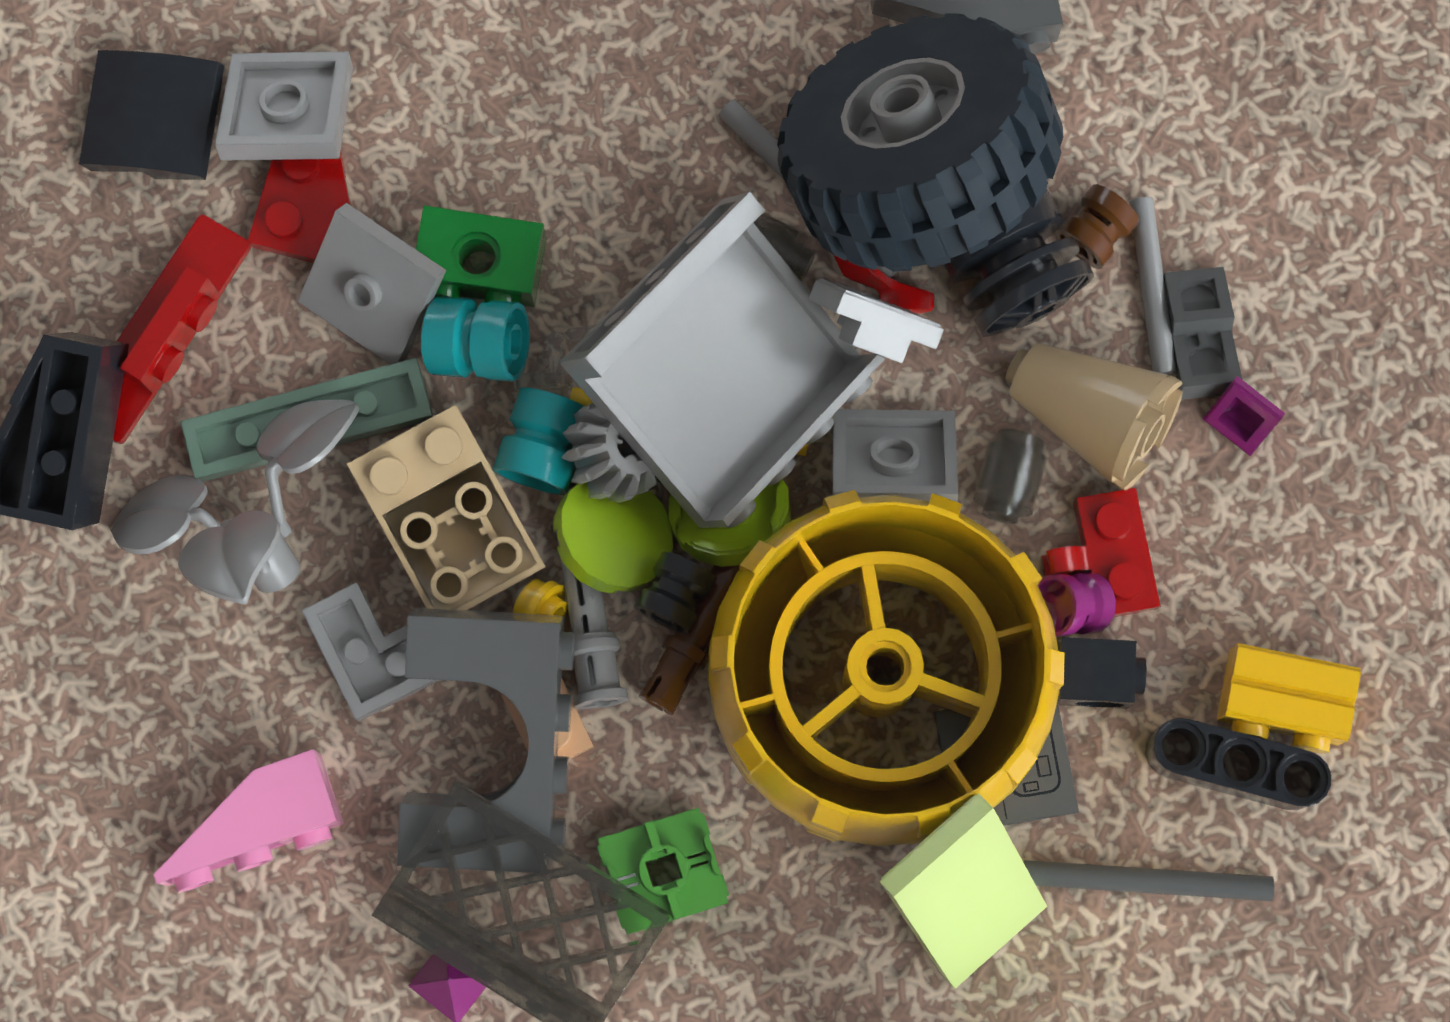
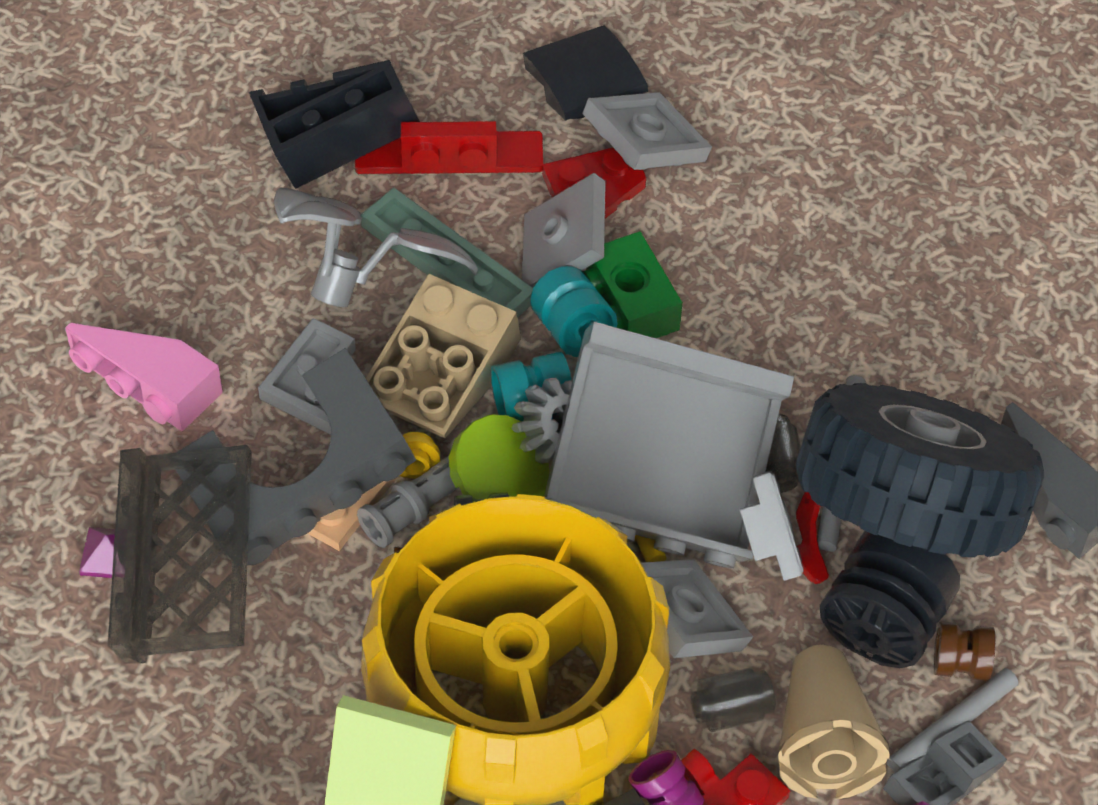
camera: 55 degrees right, 25 degrees down
(677, 835) = (303, 631): bright green piece -> none

